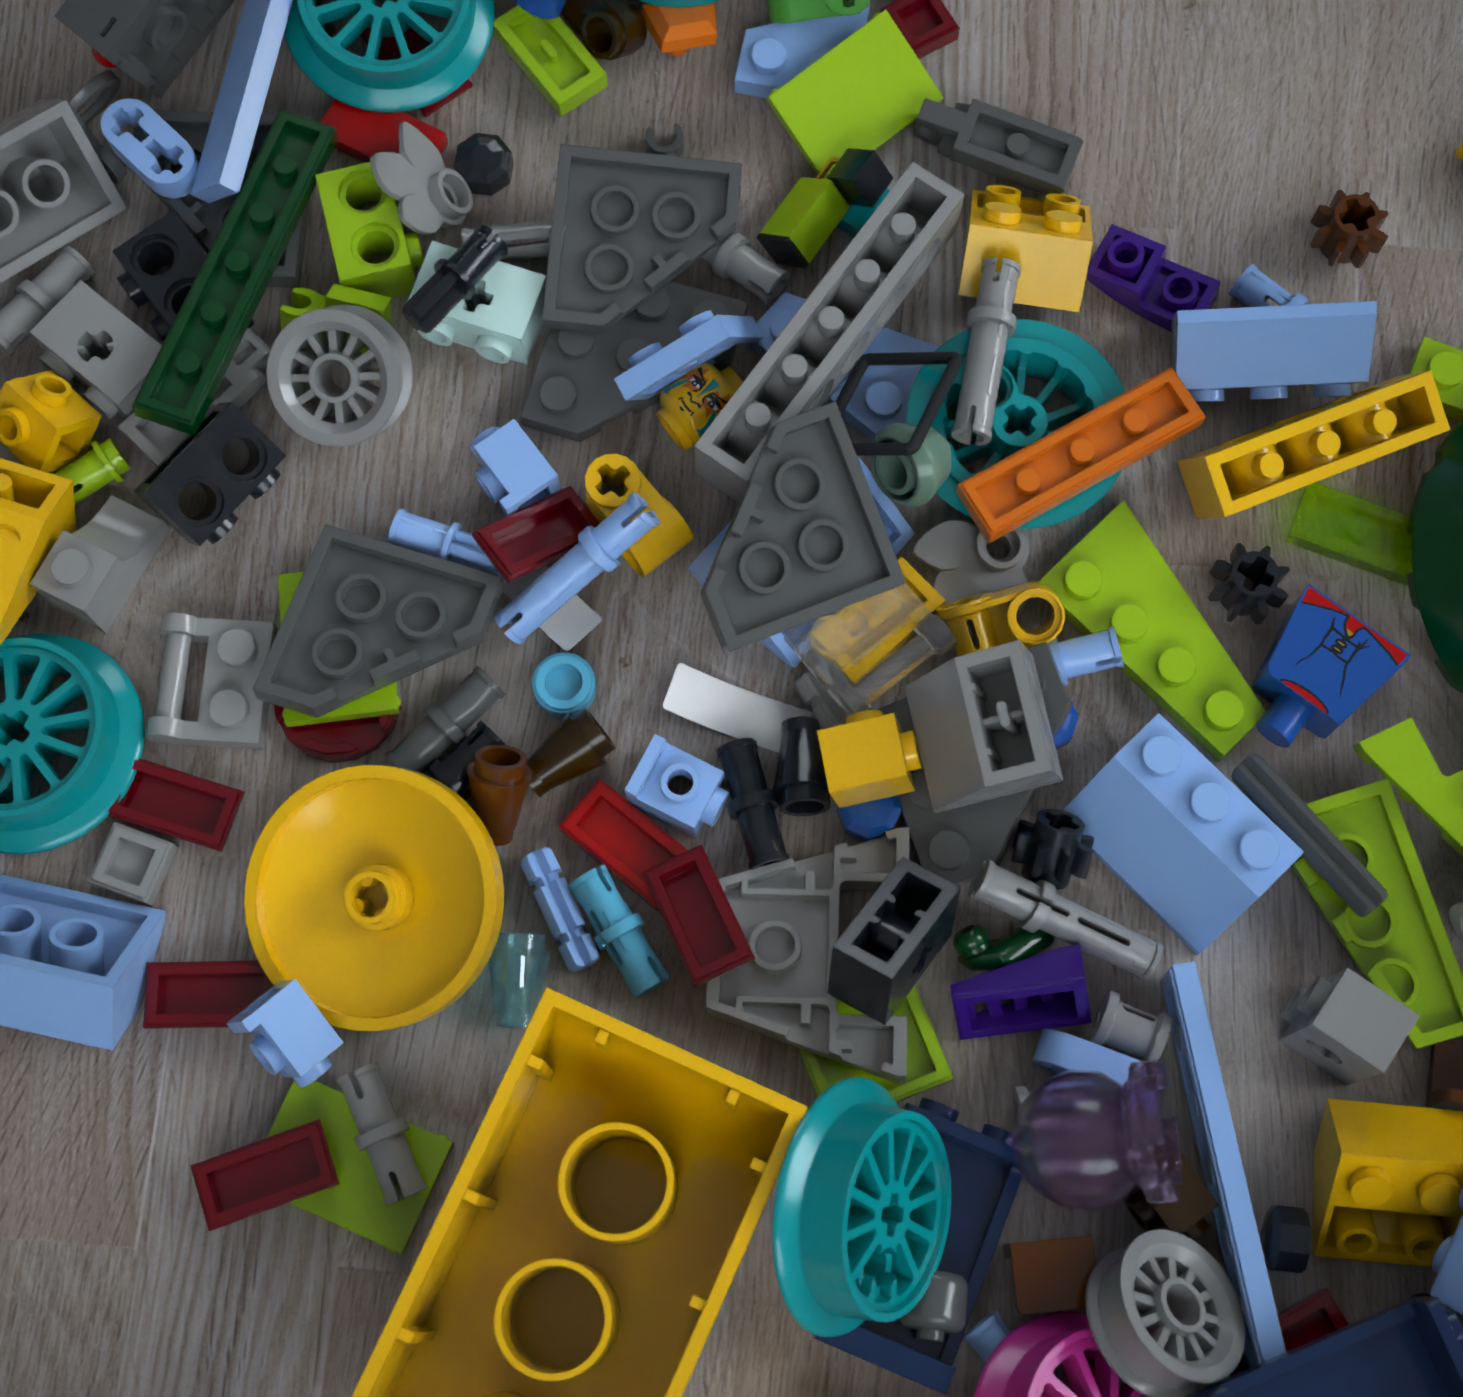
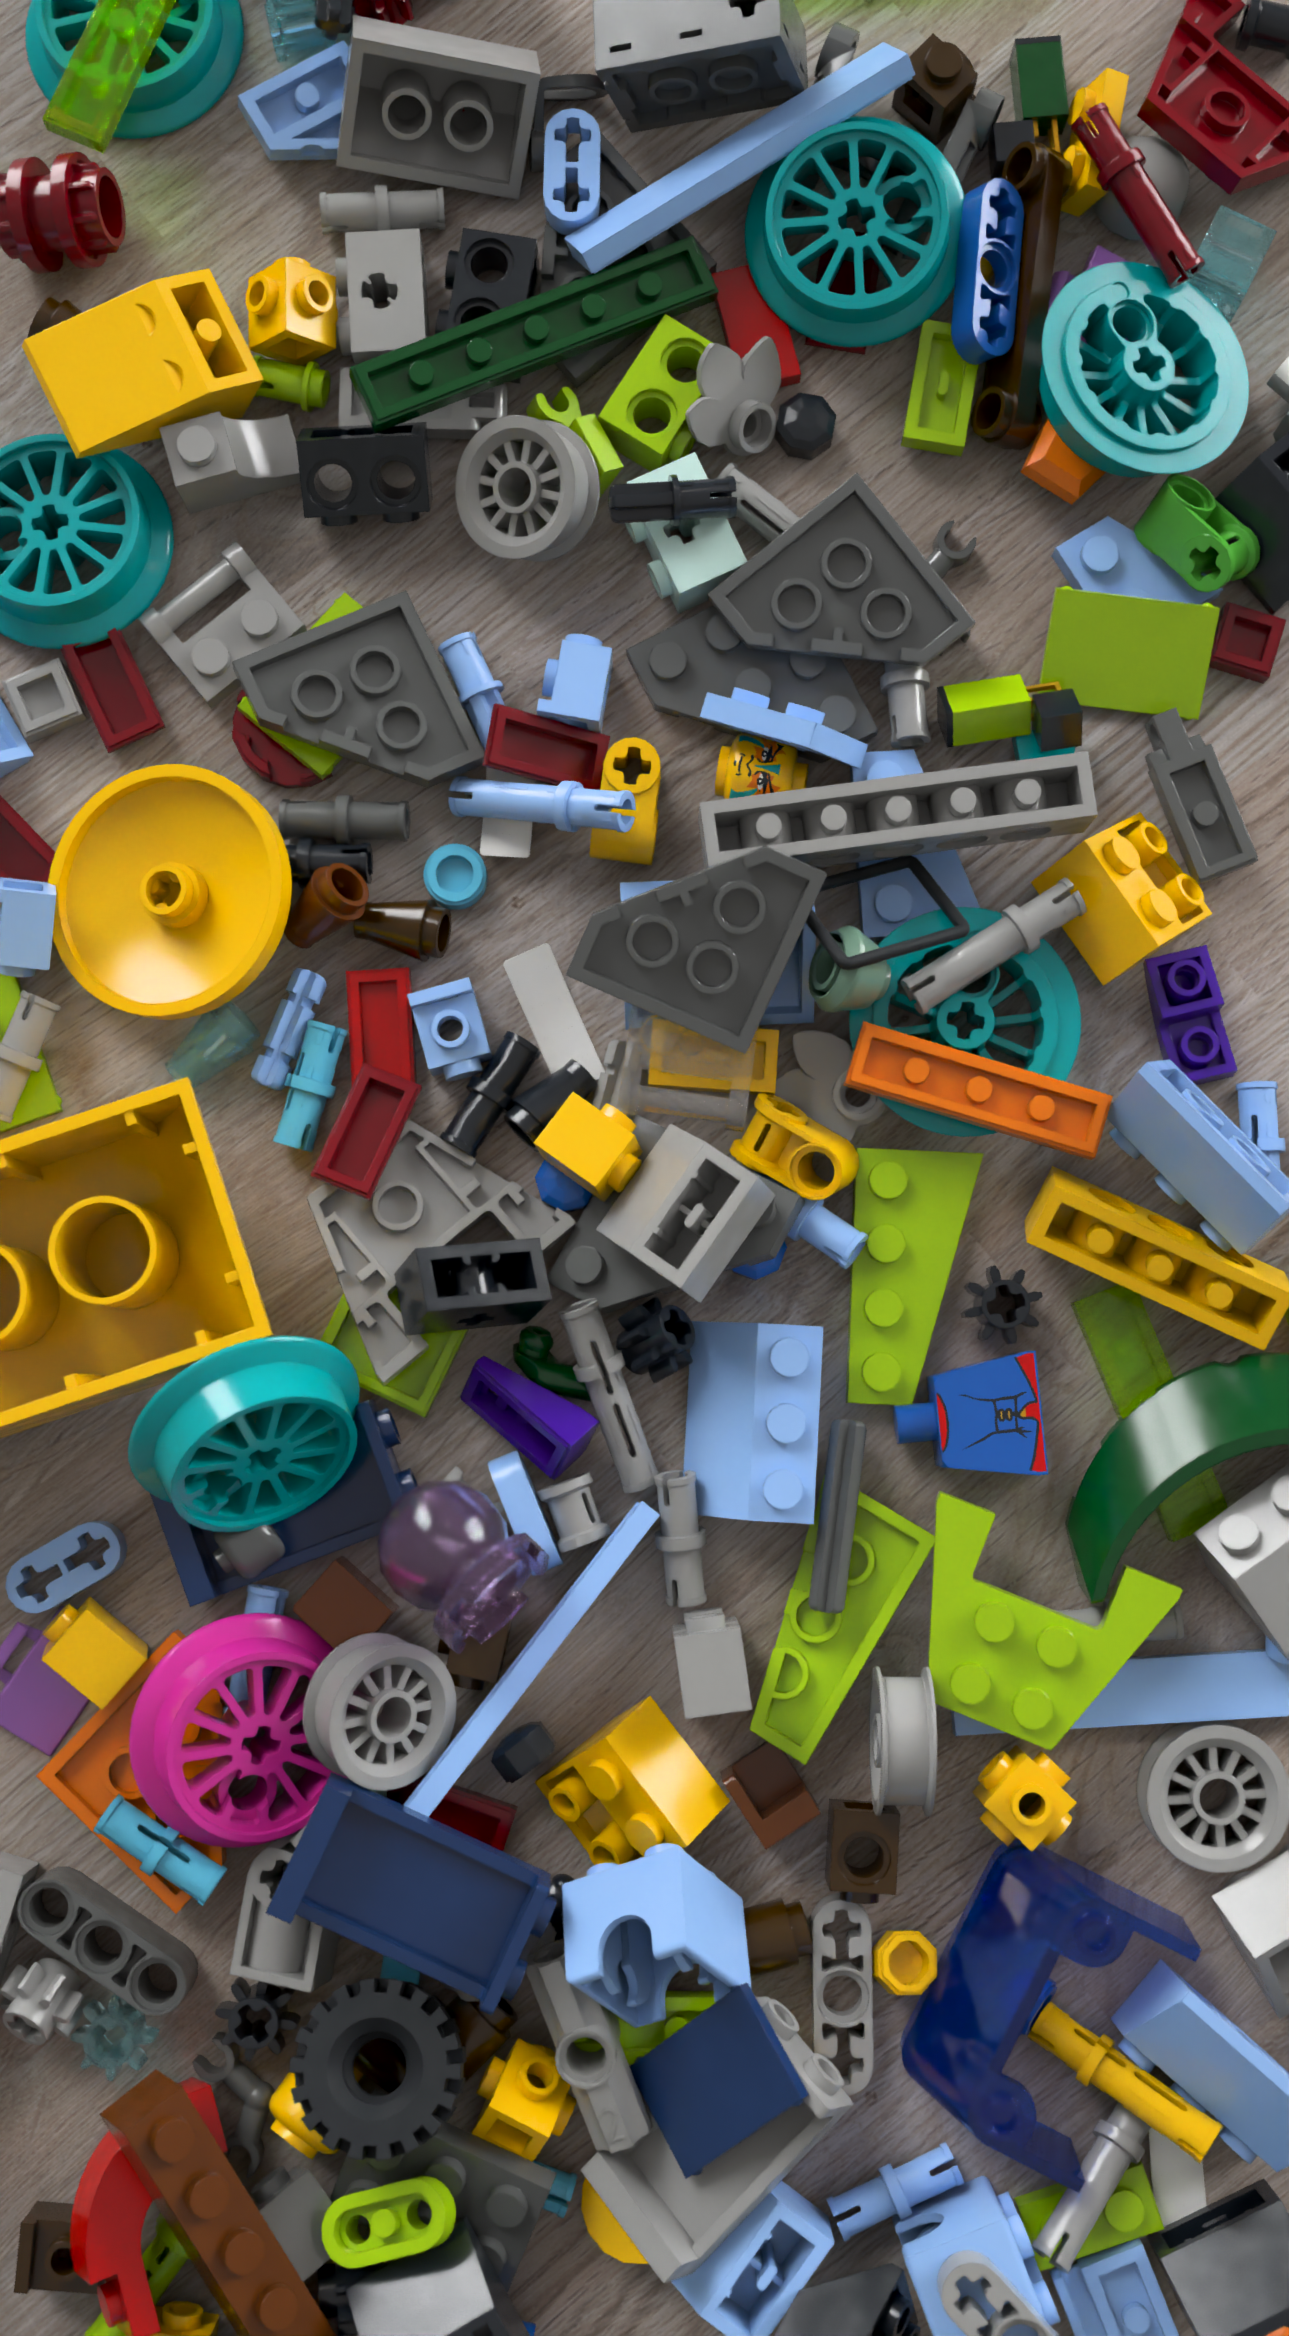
camera: 45 degrees right, 10 degrees up
(1222, 967) = (680, 1538): none -> light grey pin

